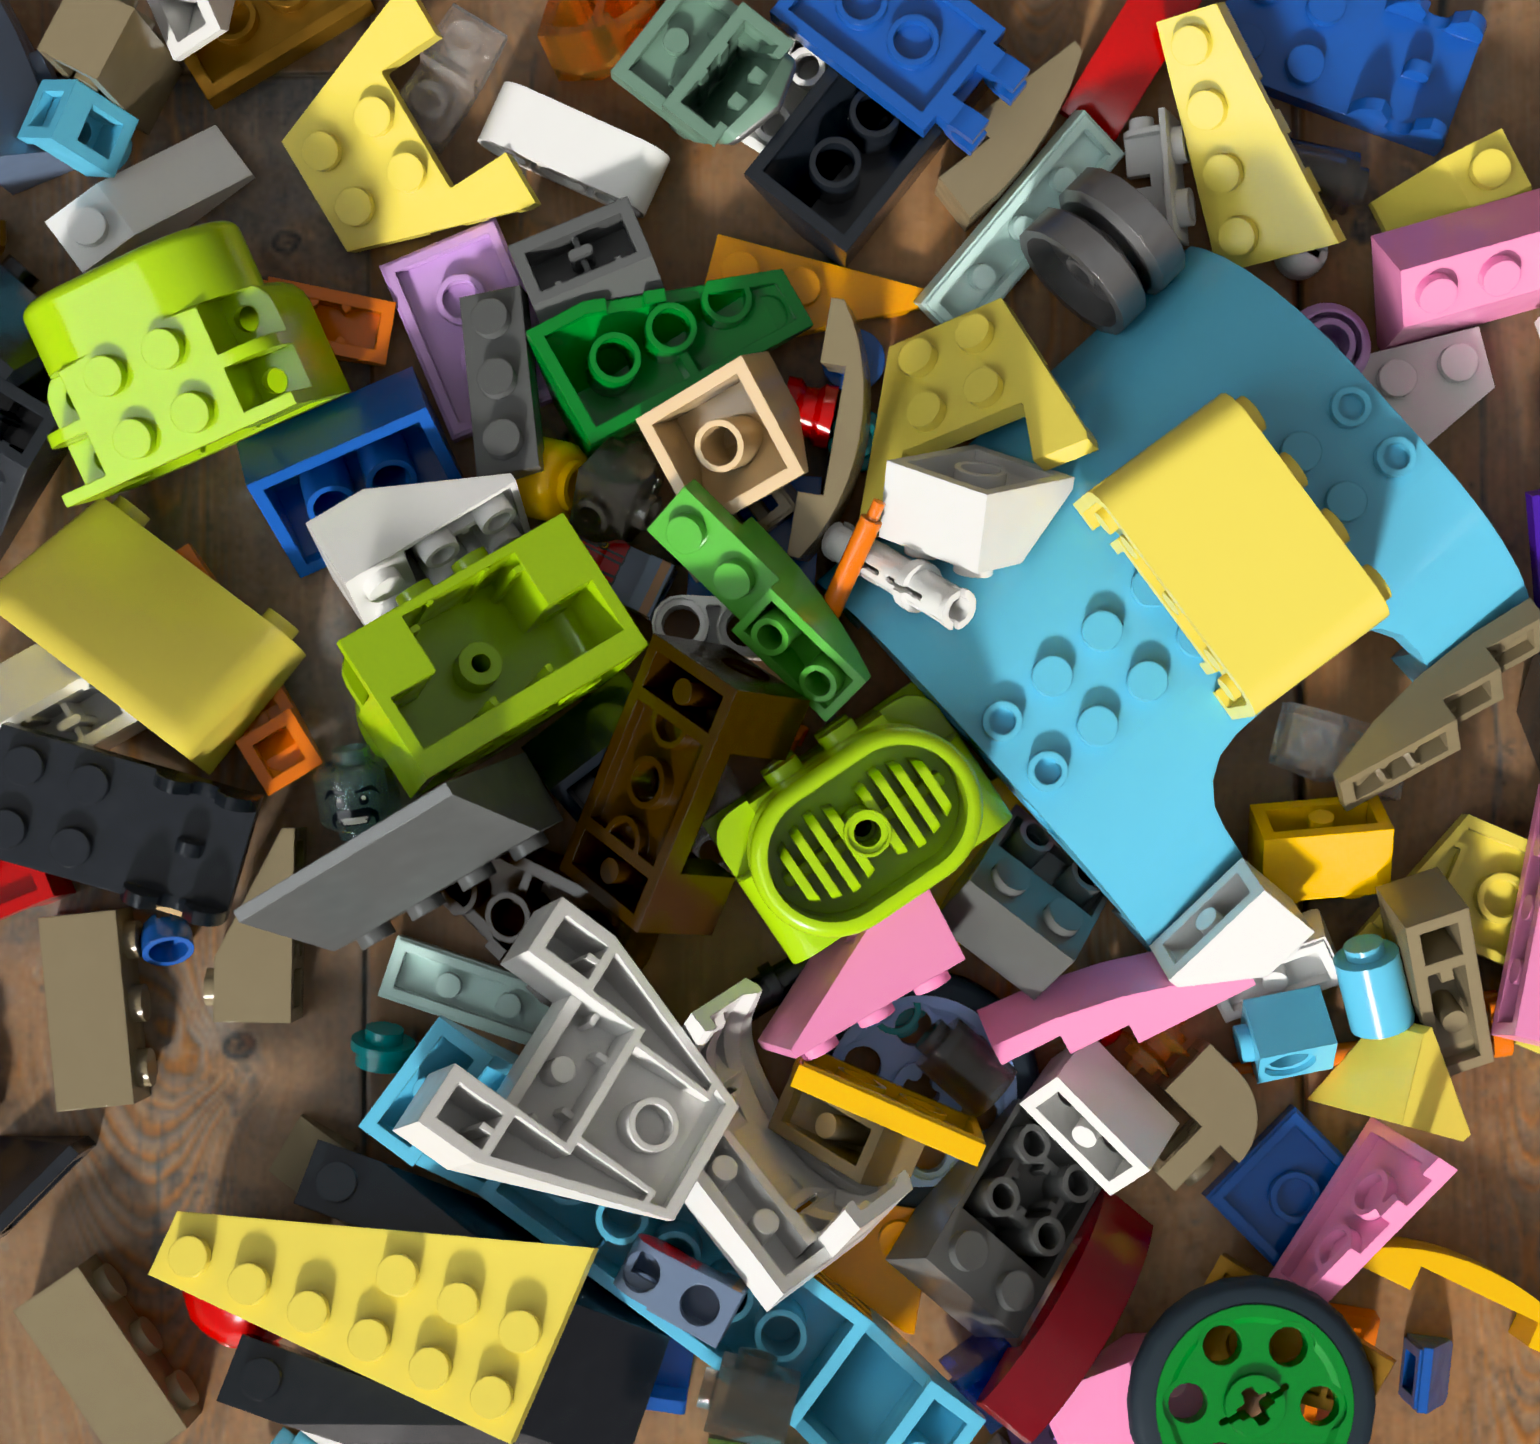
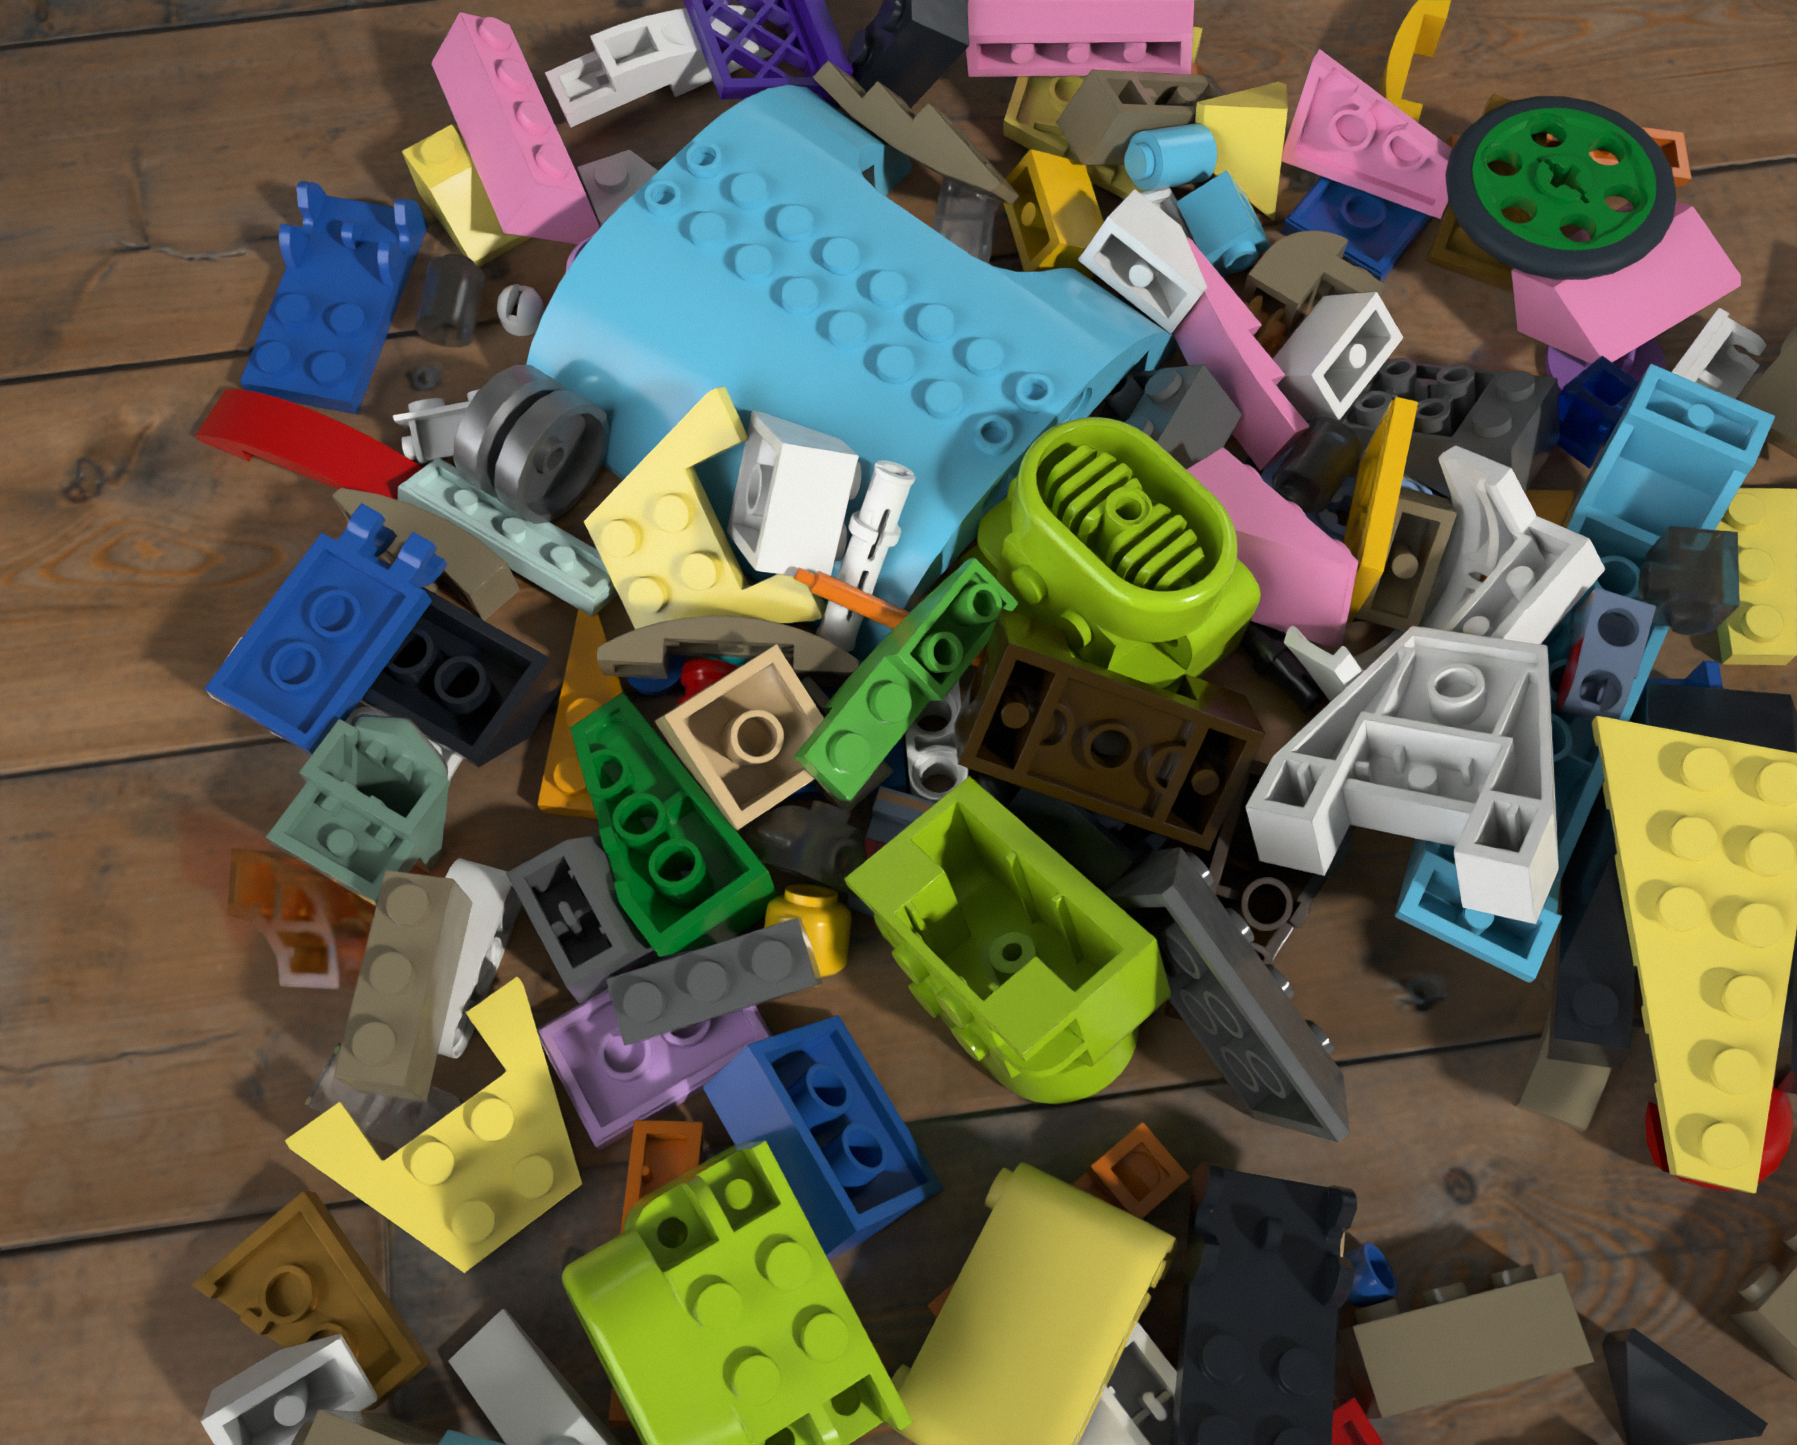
camera: 90 degrees left, 20 degrees down
(254, 970) = (1385, 1159): dark tan slope -> none
(355, 790) = (1168, 1083): clear light blue head -> none
(381, 1047) = (1428, 1021): teal plate -> none
(413, 532) = (891, 1052): white slope -> none
(461, 989) = (1350, 939): light aqua tile -> none
(526, 96) = (404, 986): none -> dark tan brick
(1073, 1323) = (1590, 348): dark red slope -> none
(1239, 553) = (806, 242): light yellow windscreen -> none
(1245, 167) = (424, 350): light yellow wing -> none
(1425, 1371) = (1470, 99): blue slope -> none

